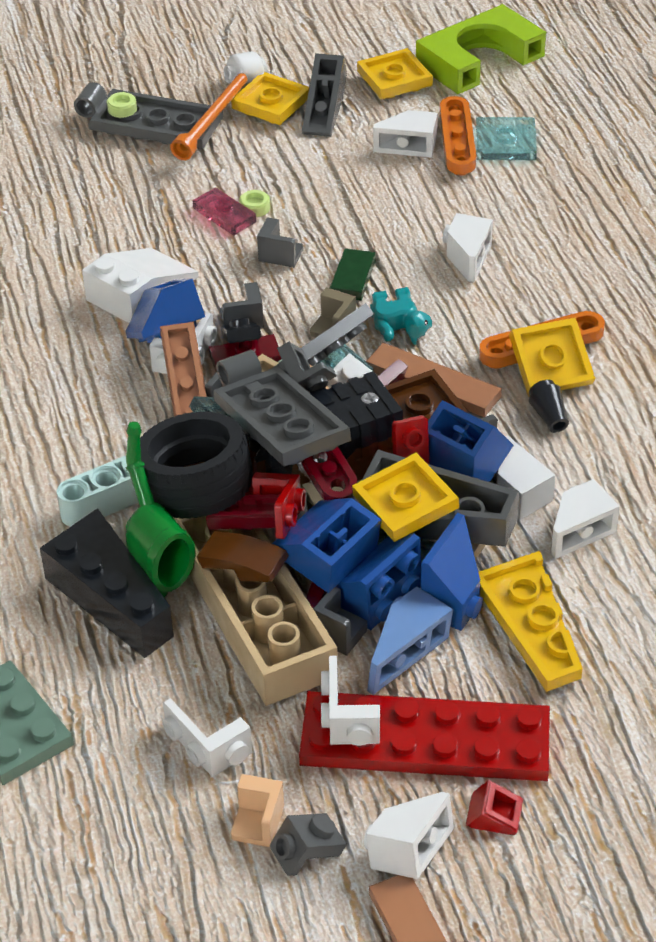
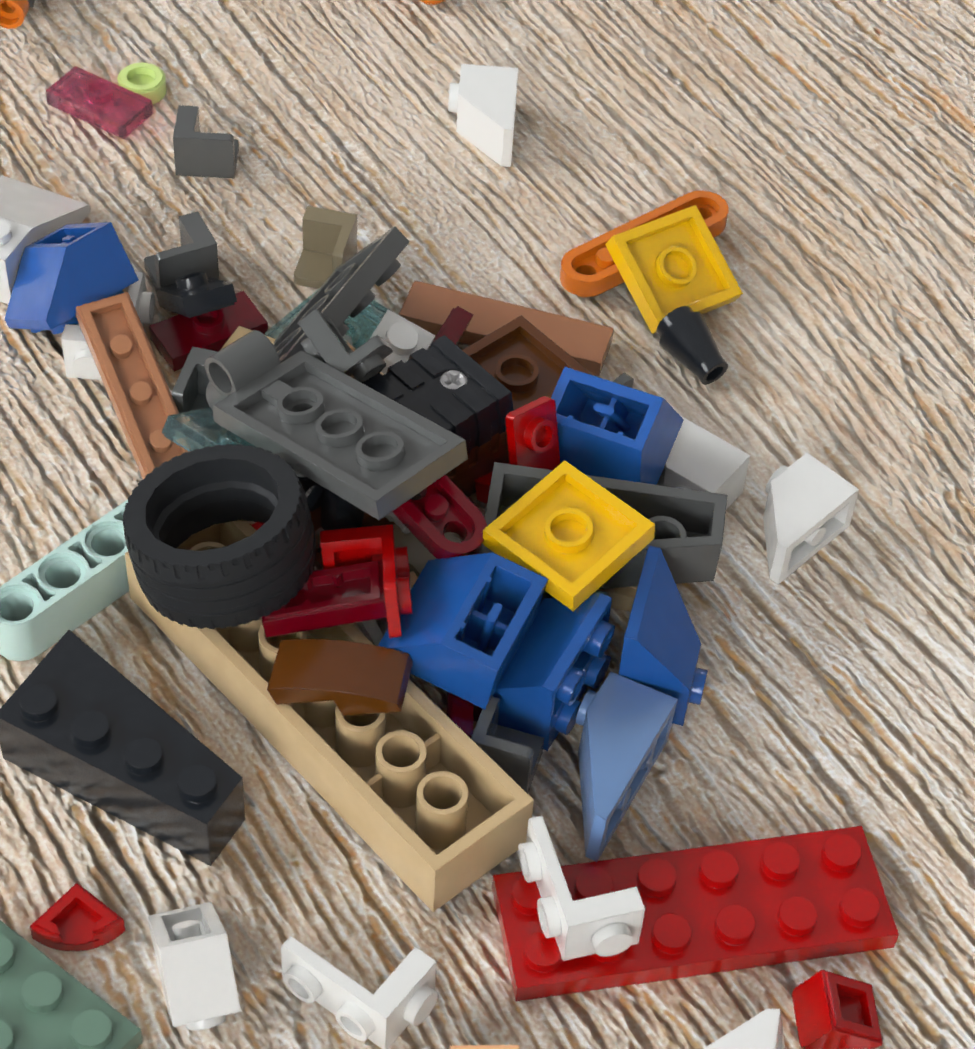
camera: 20 degrees left, 5 degrees up
(56, 673) = (77, 923): none -> red tile
(112, 707) = (194, 966): none -> white slope
(151, 532) = (181, 659): green piece -> none
(354, 272) = (330, 174): dark green tile -> none
(398, 314) = (428, 233): teal animal -> none
(526, 609) = (774, 678): yellow wing -> none

